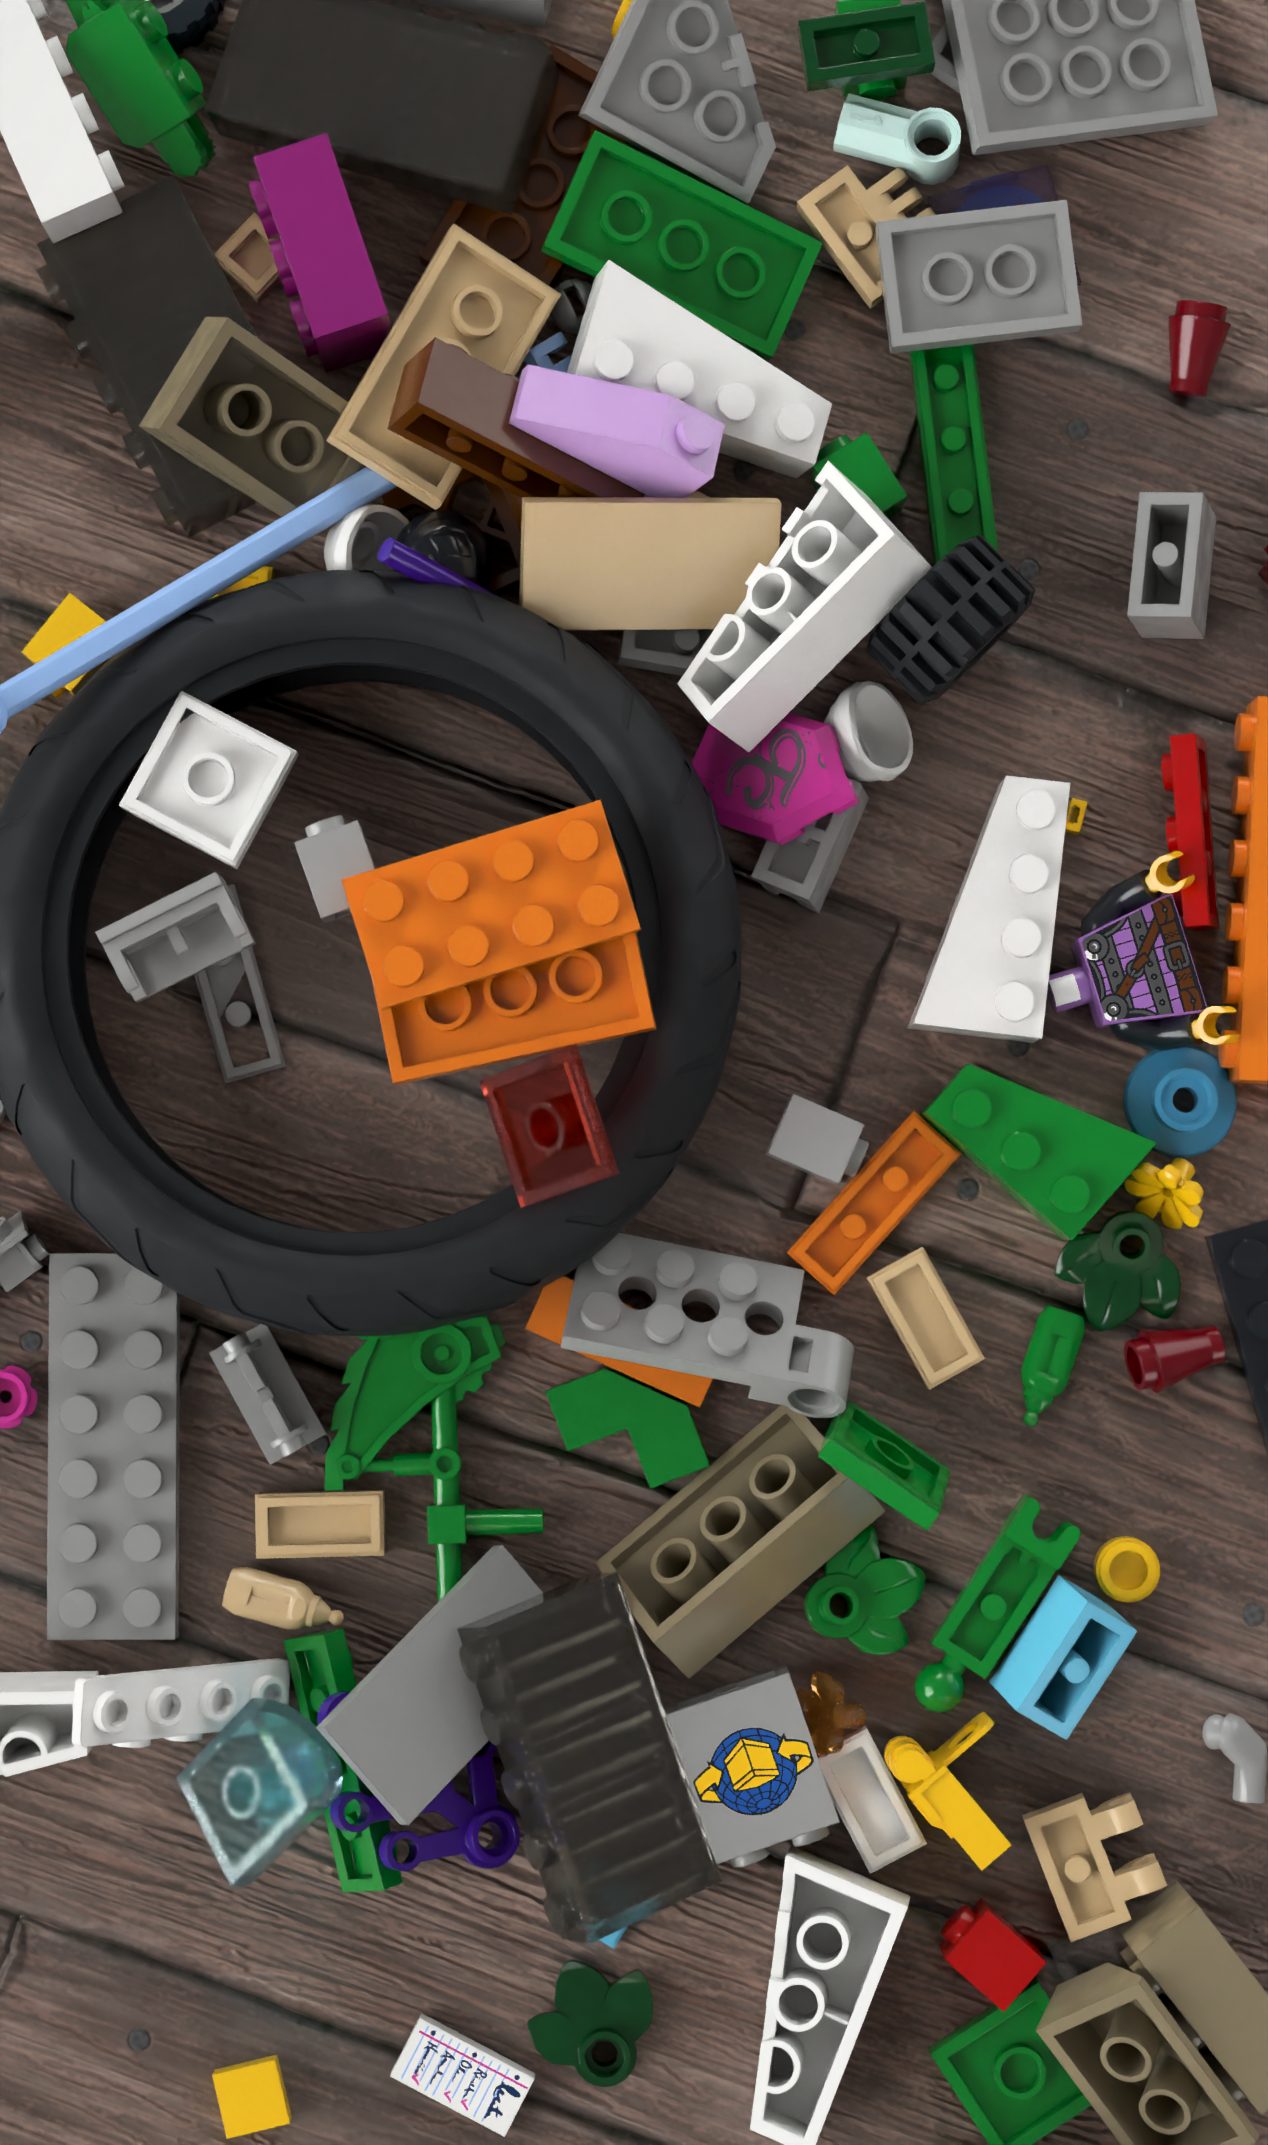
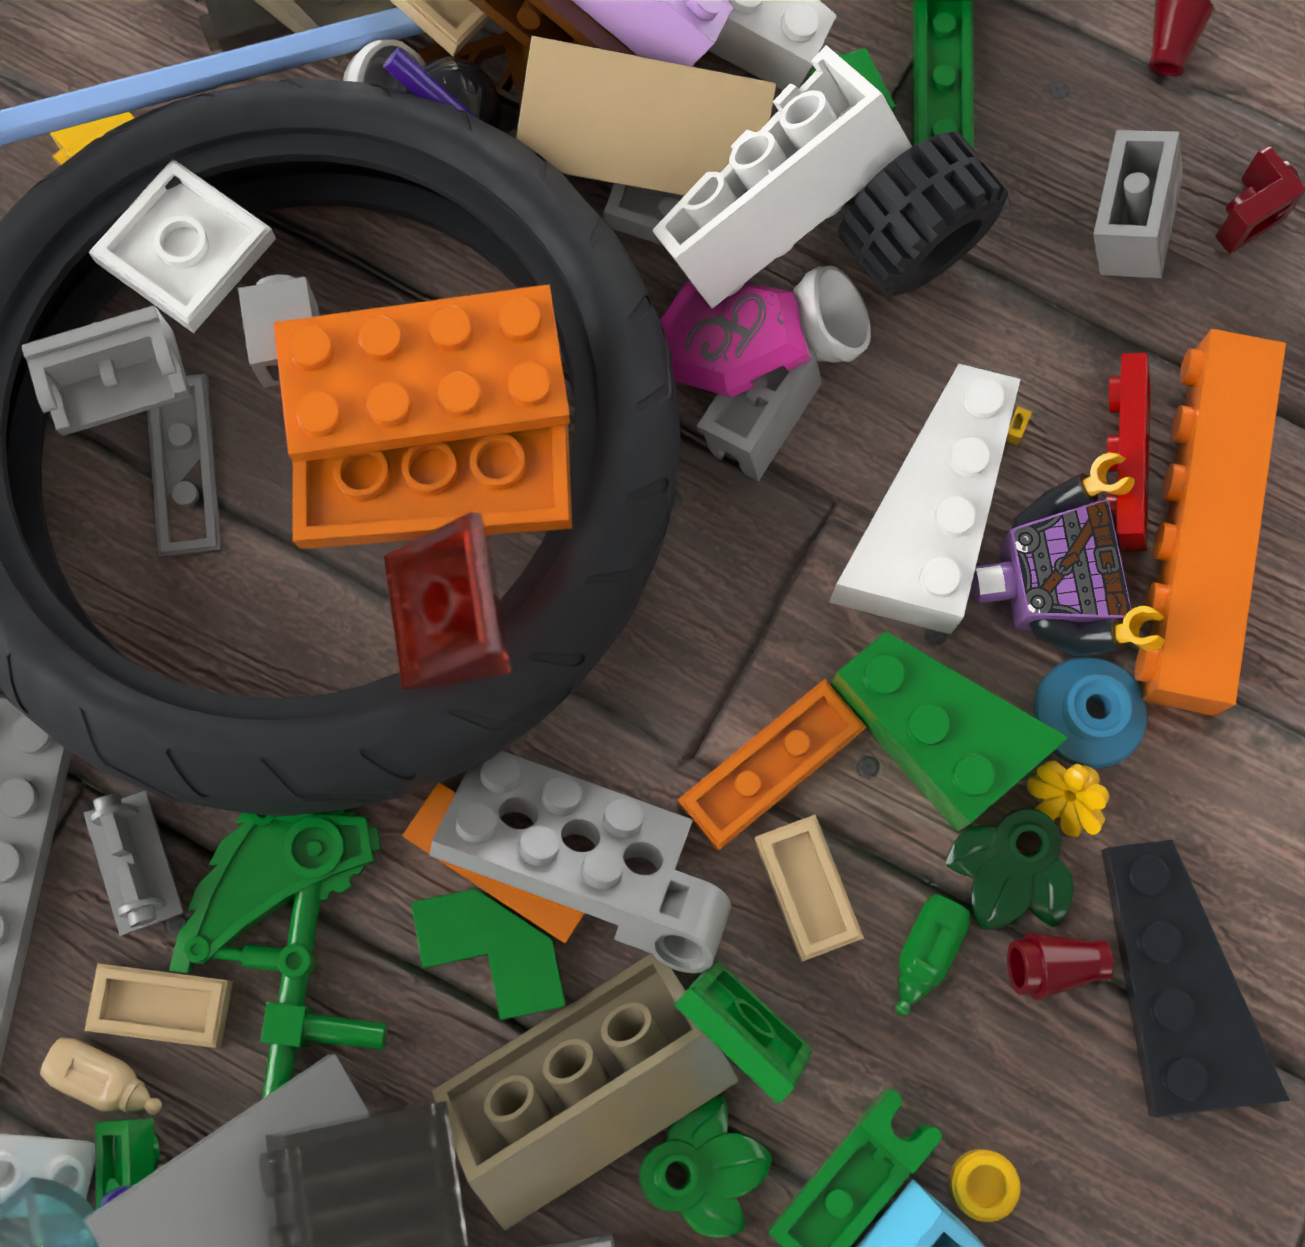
camera: 10 degrees right, 10 degrees down
(818, 1141) = (724, 691): light grey brick -> none

